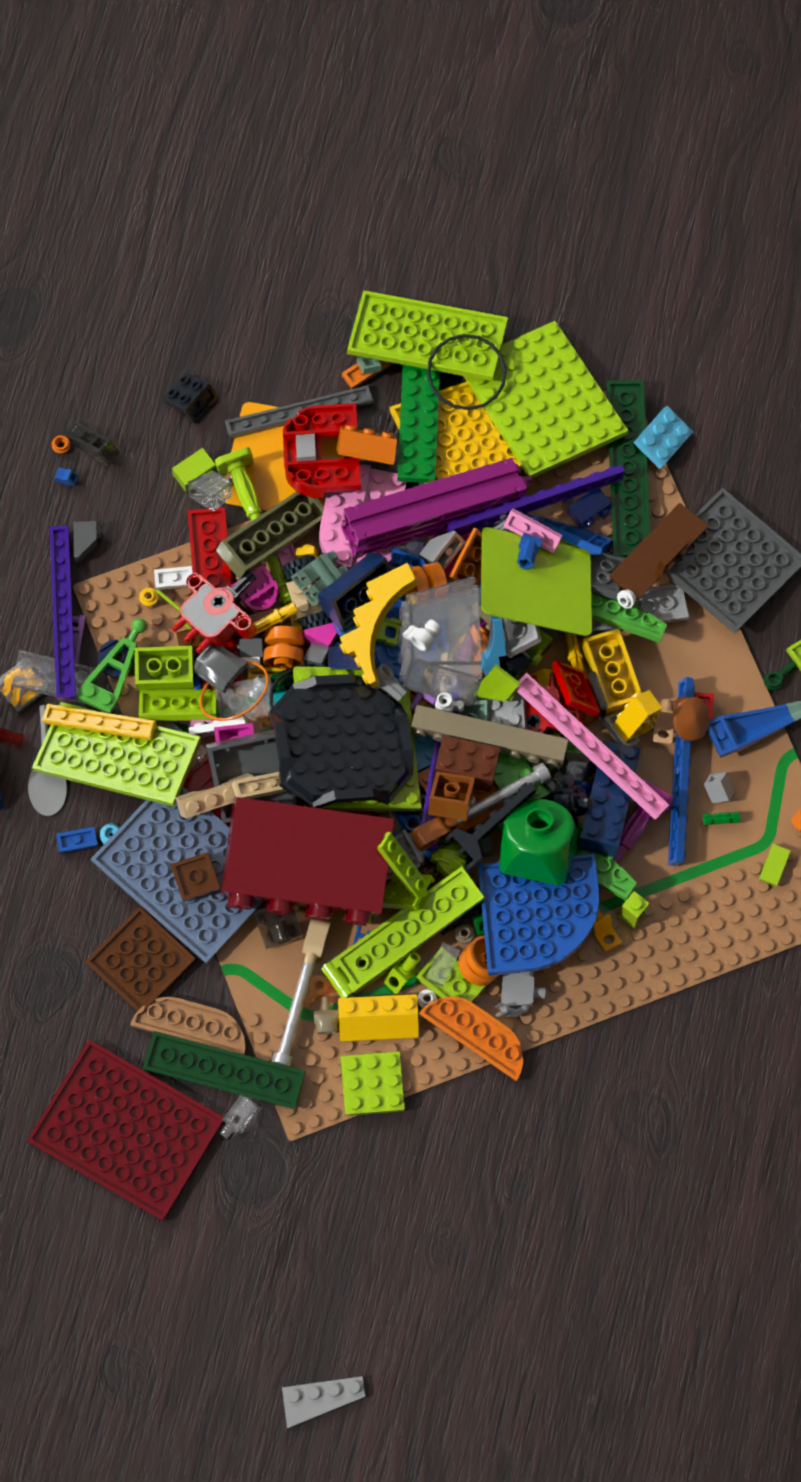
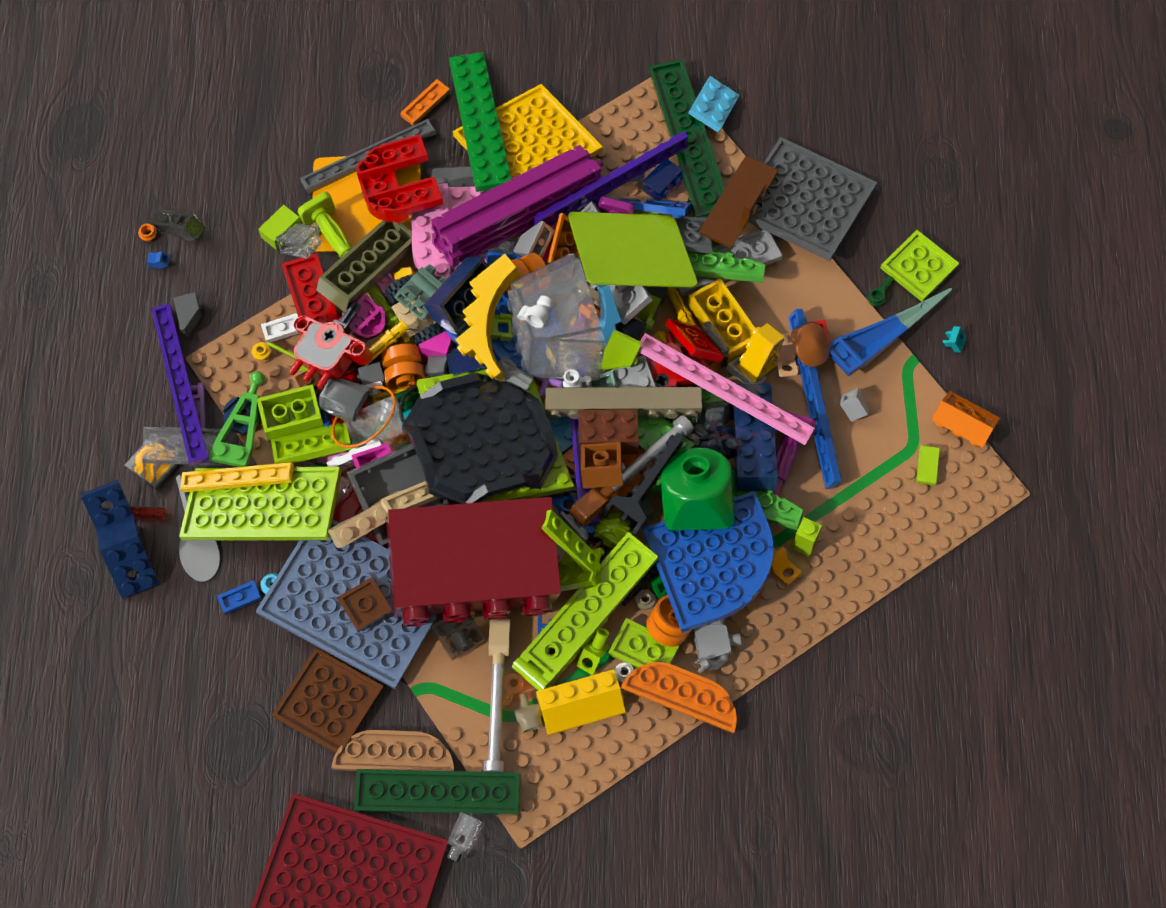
camera: 10 degrees left, 5 degrees down
(191, 396) = (264, 162): black bracket -> none
(305, 447) = (381, 179): light grey slope -> none
(367, 444) = (439, 164): orange slope -> none
(368, 365) = (424, 98): sand green plate -> none
(372, 1083) = (590, 769): lime plate -> none
(411, 329) = (473, 61): lime plate -> none
(443, 964) = (632, 633): clear plate -> none
(473, 337) = (521, 114): black piece -> none
(521, 523) = (616, 205): bright pink plate -> none
(529, 547) = (617, 222): blue piece -> none
(548, 402) = (594, 94): lime plate -> none
(626, 598) = (723, 245): white plate -> none
(721, 818) = (864, 433): green axle -> none

